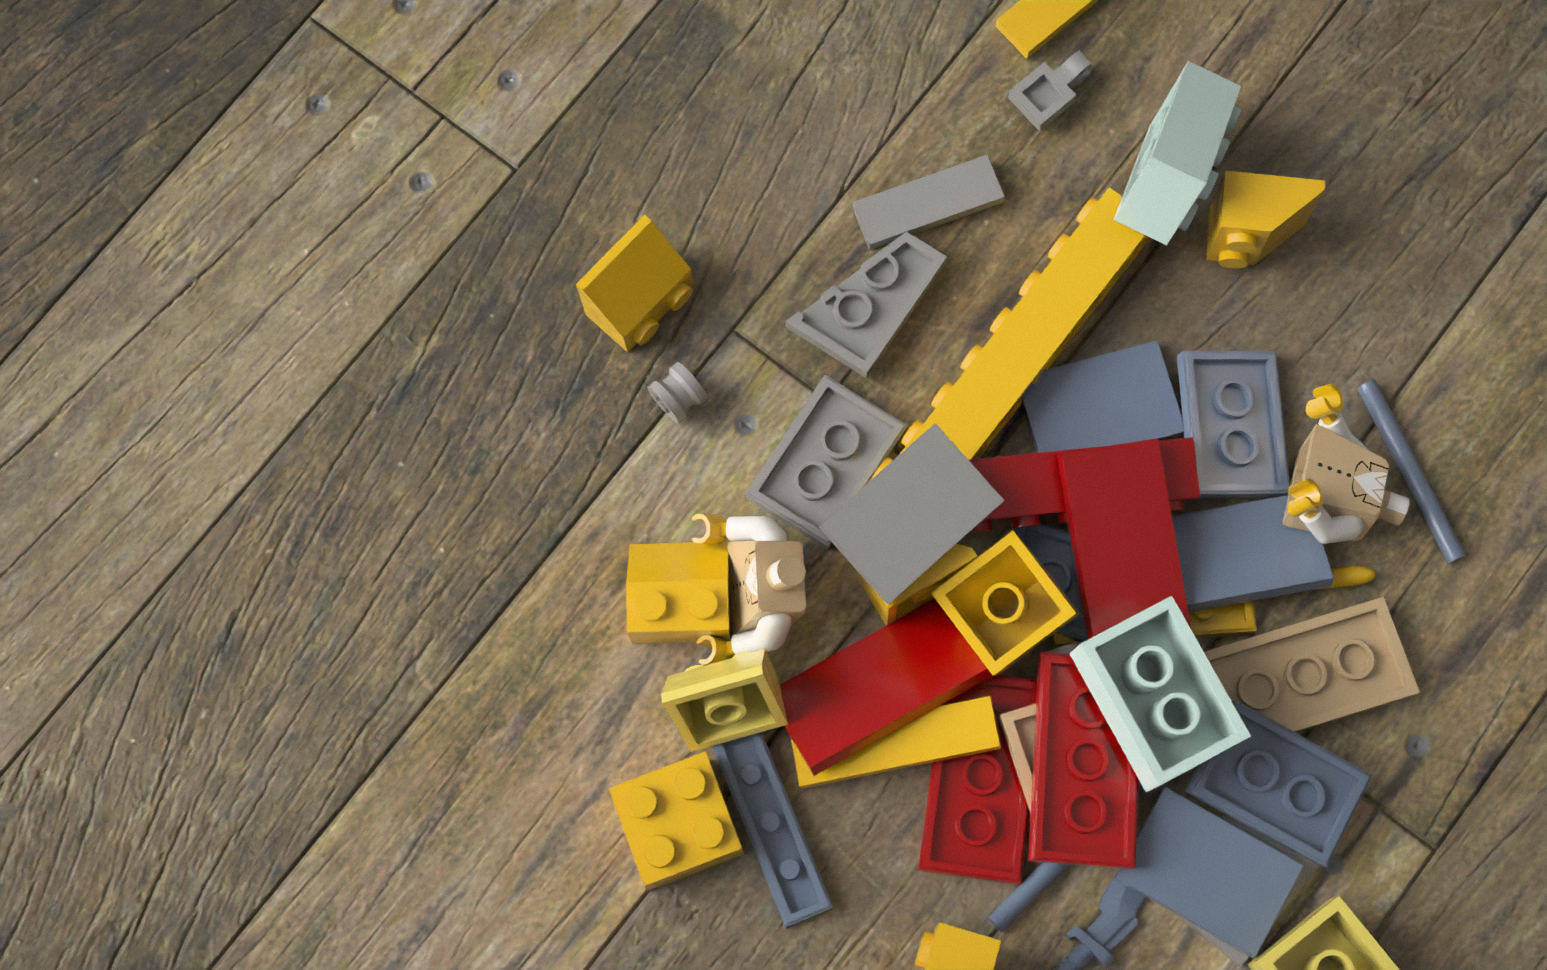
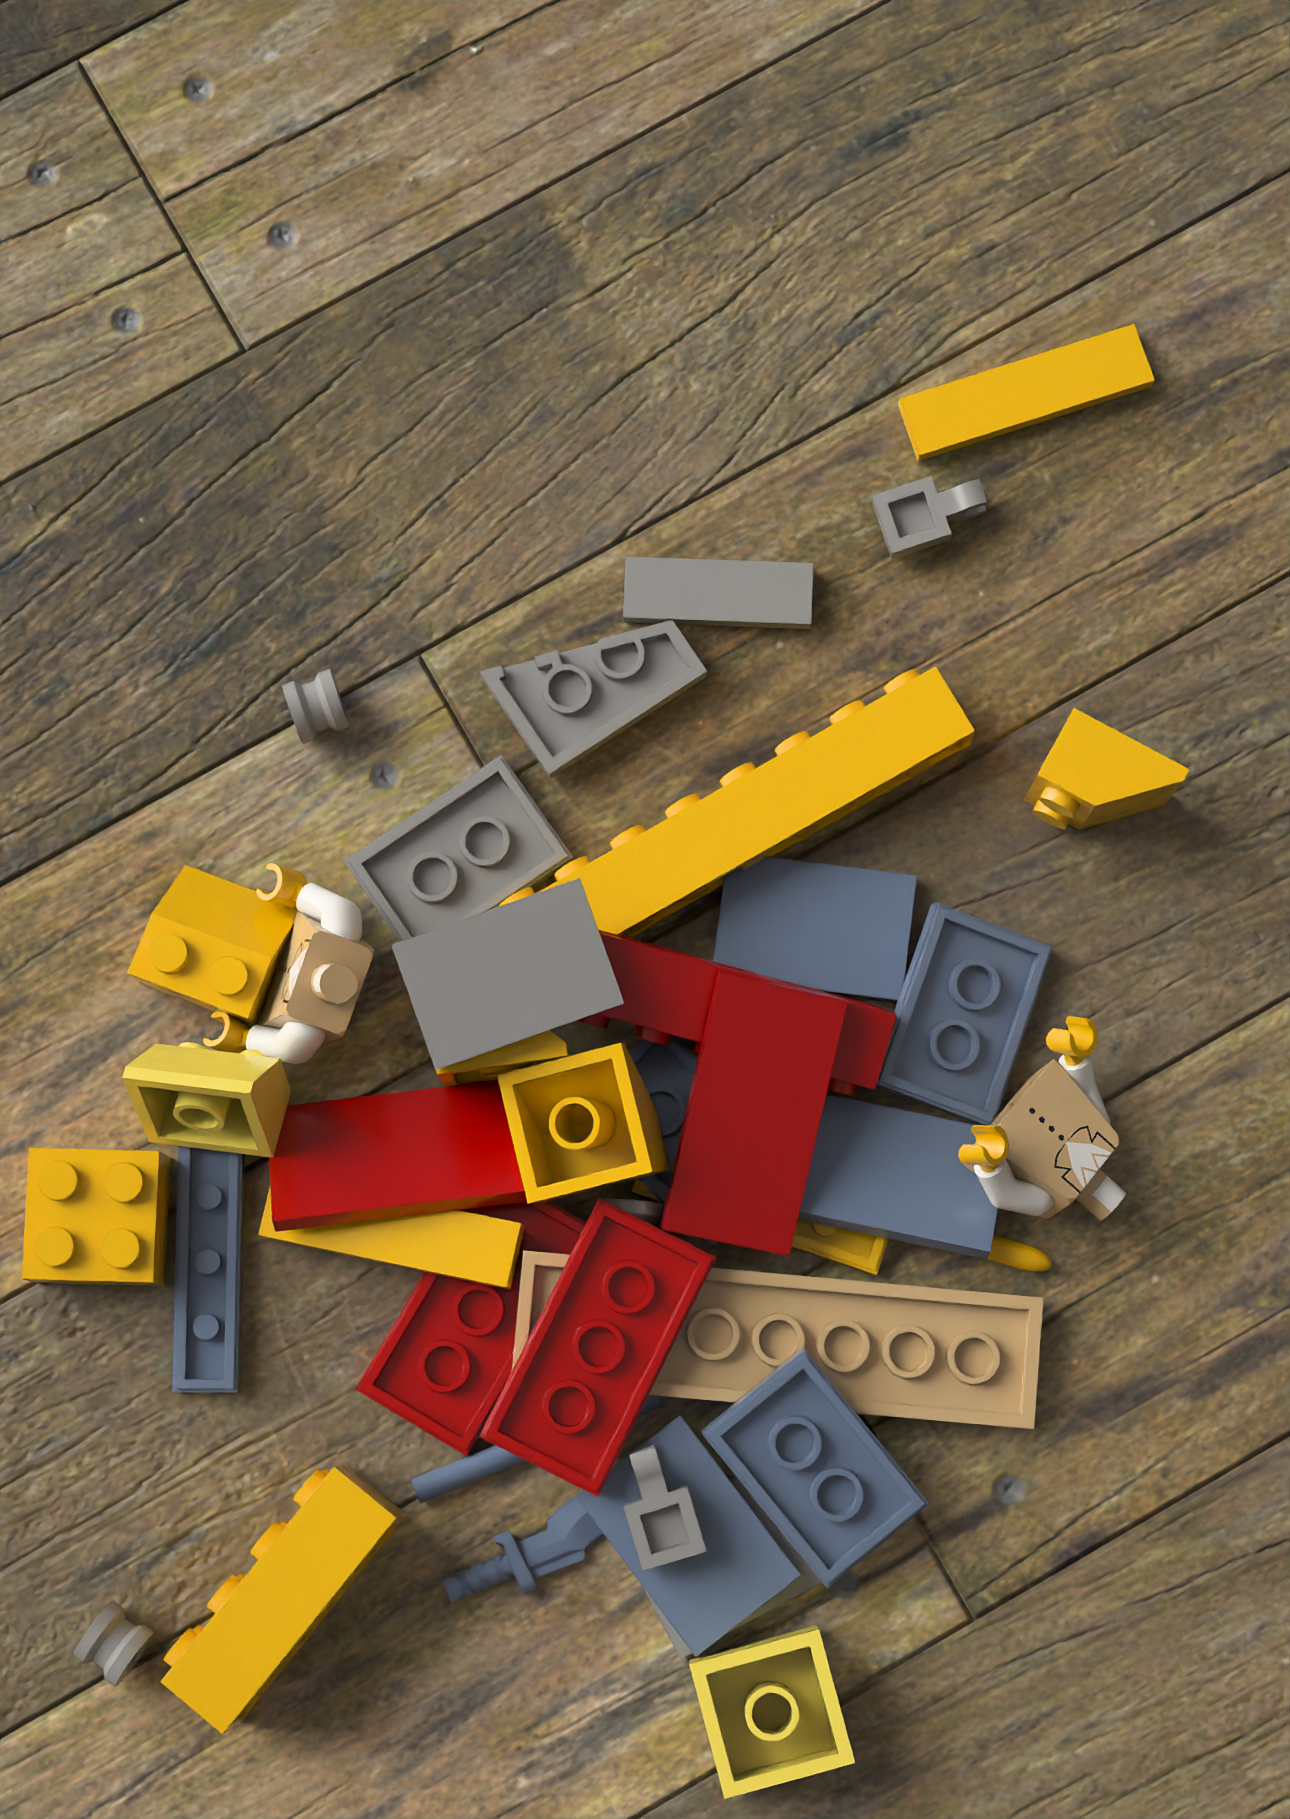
camera: 20 degrees right, 5 degrees up
(635, 285) = (318, 556): yellow slope -> none
(1159, 693) = (707, 1309): light aqua brick -> none
(1180, 154) = (1022, 671): light aqua brick -> none
(1190, 865) = (664, 1519): none -> light grey plate
(1411, 472) = (1151, 1159): sand blue bar -> none

